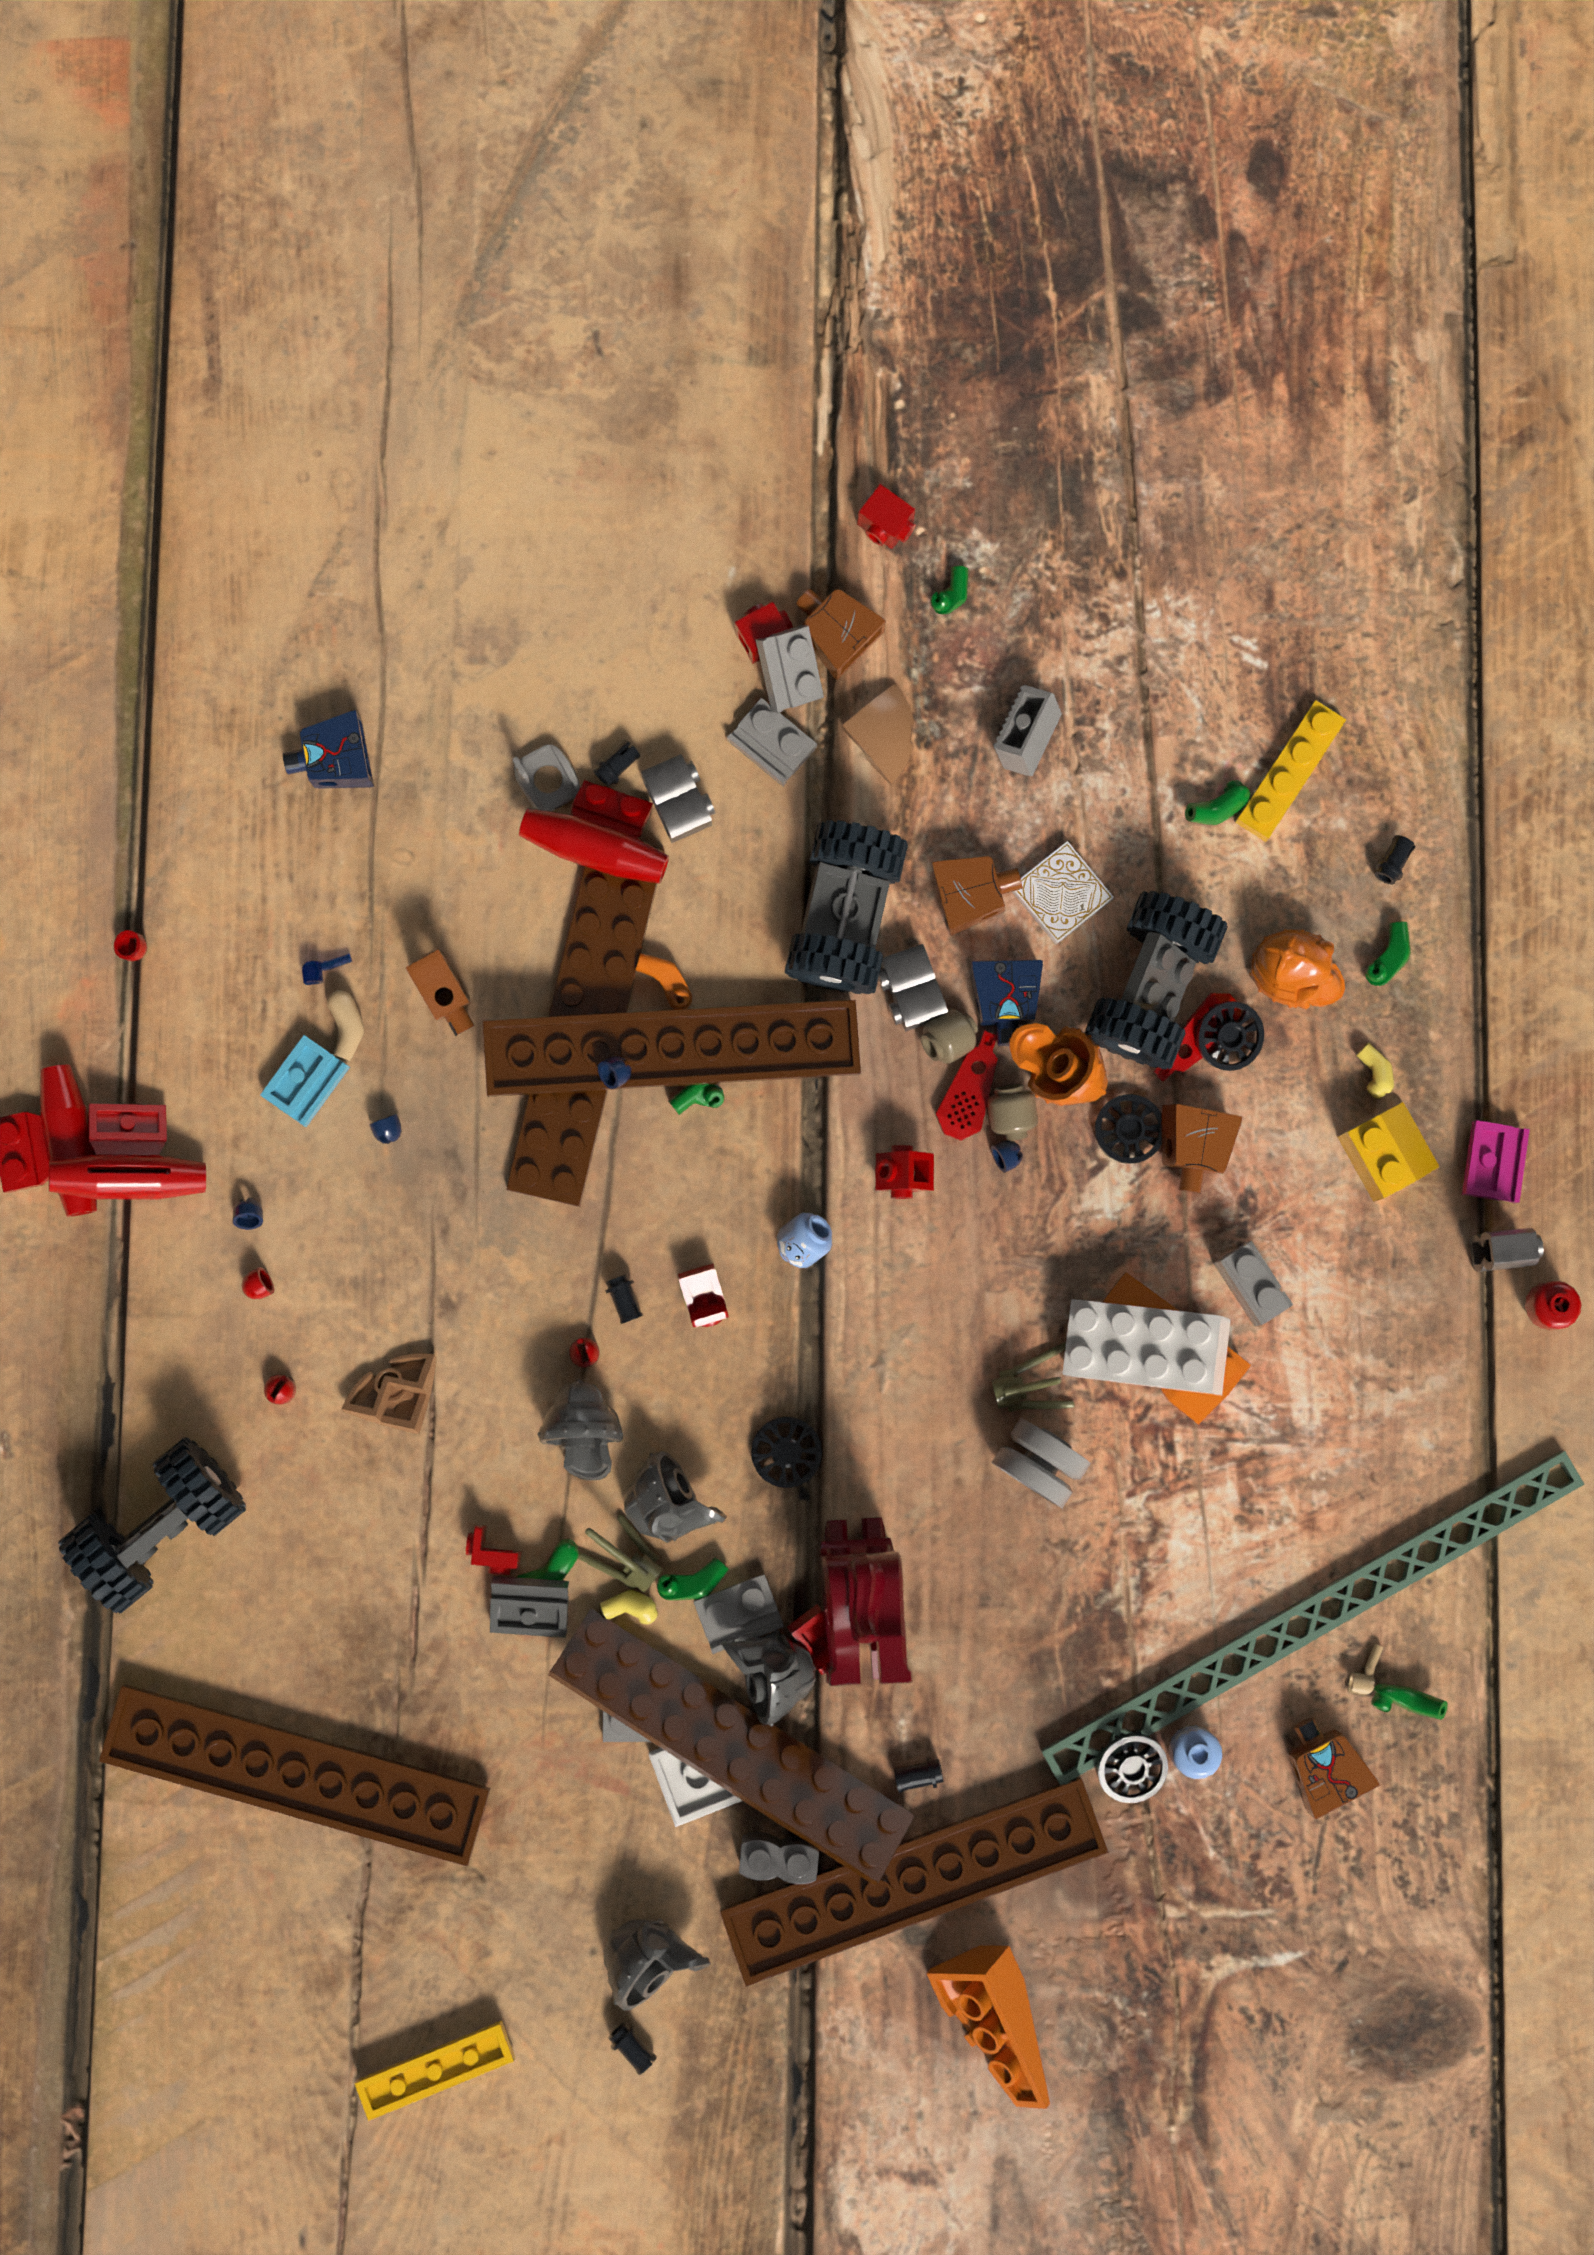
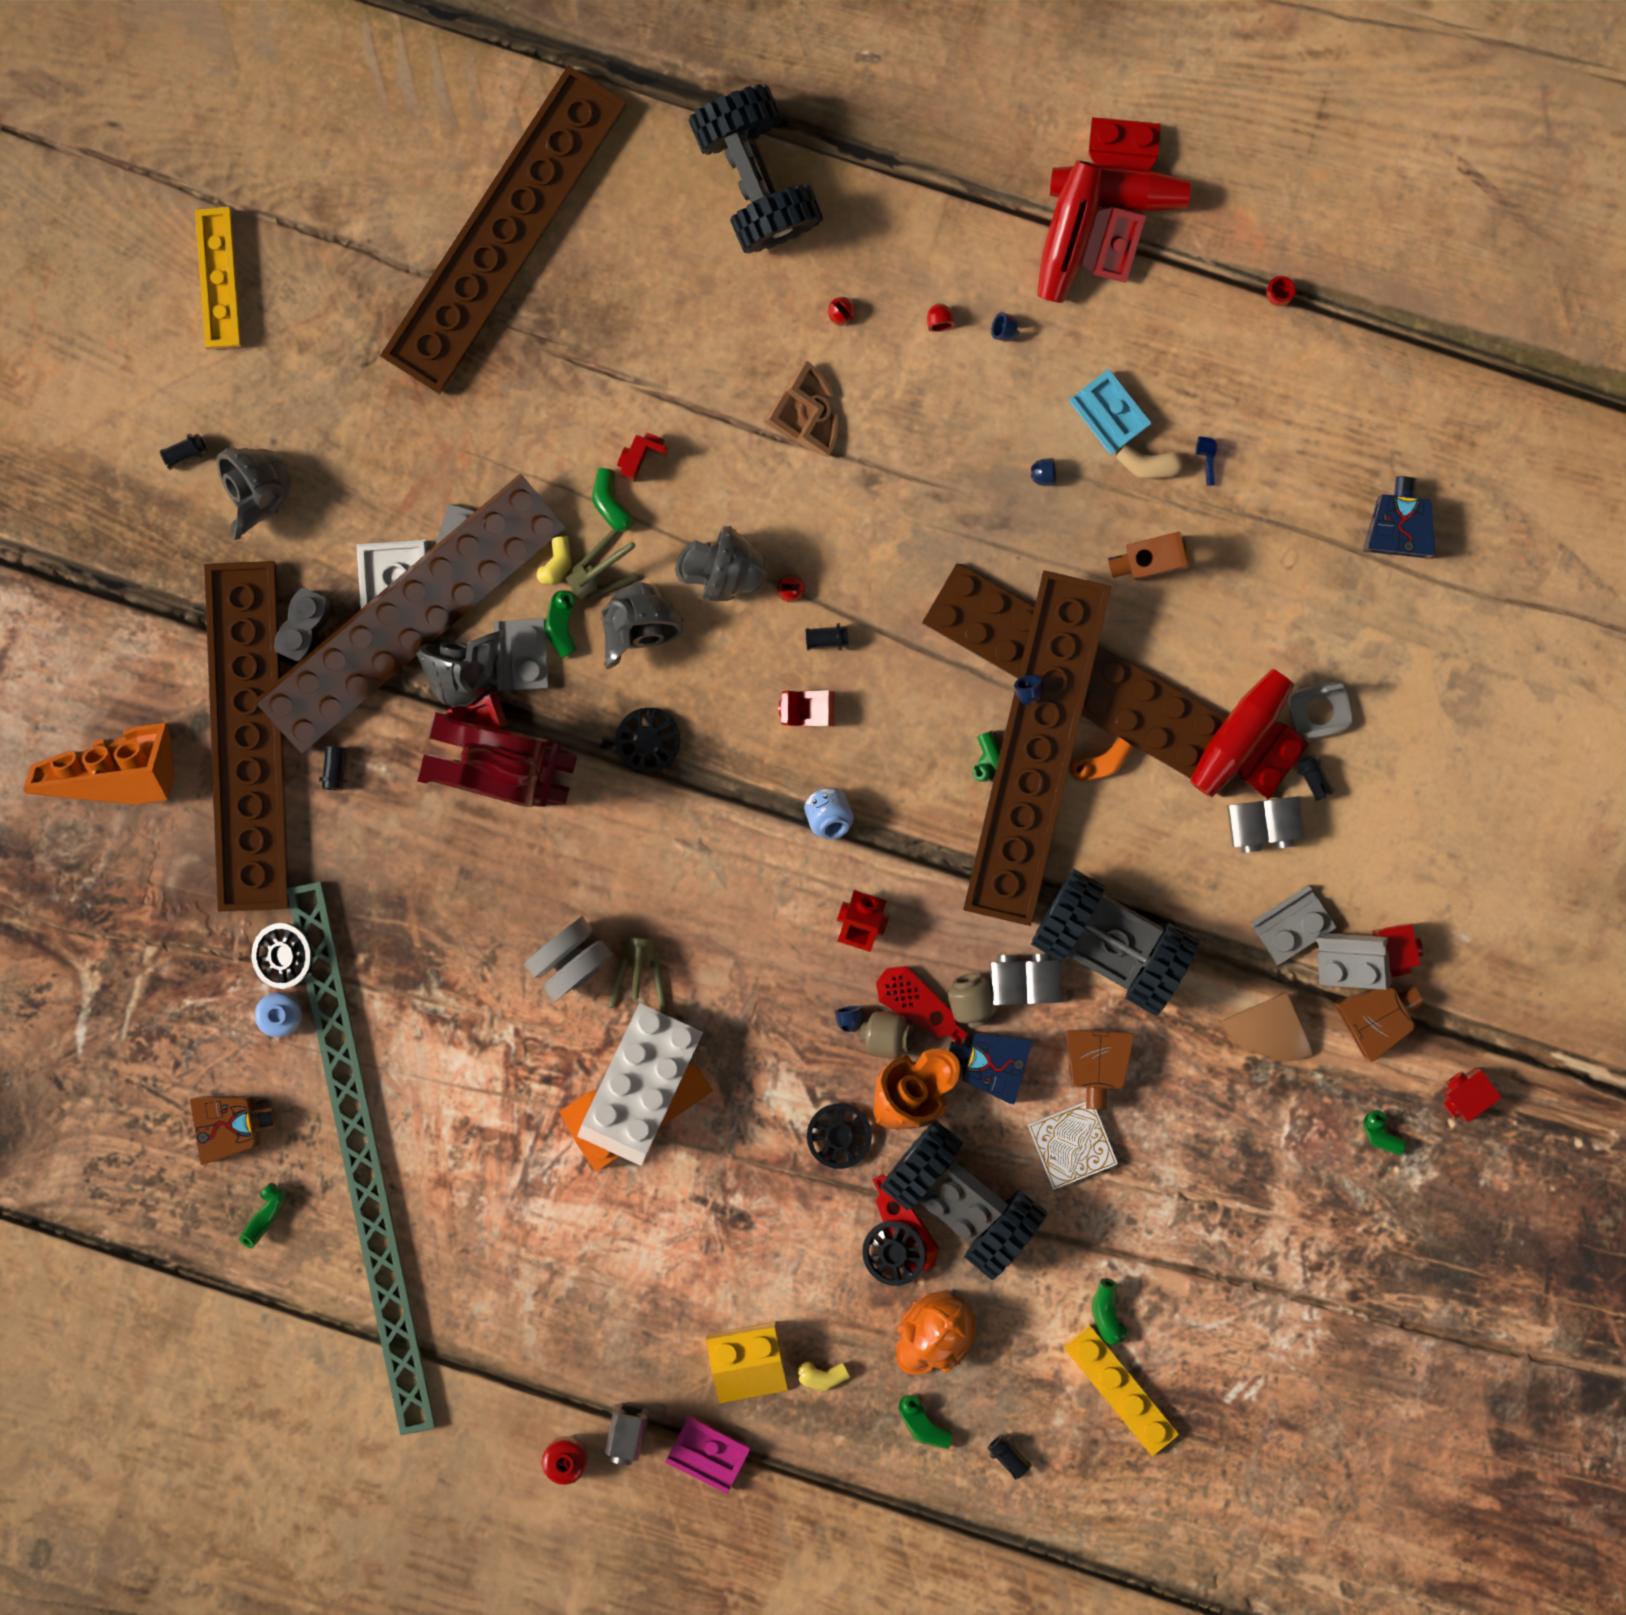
camera: 105 degrees right, 5 degrees up
(529, 1606) = (583, 474): dark grey plate -> none
(1027, 730) = (1229, 1159): light grey brick -> none
(1197, 1142) = (807, 1190): dark orange torso -> none
(1253, 1284) = (666, 1199): light grey brick -> none
(1364, 1683) = (290, 1181): tan hand -> none

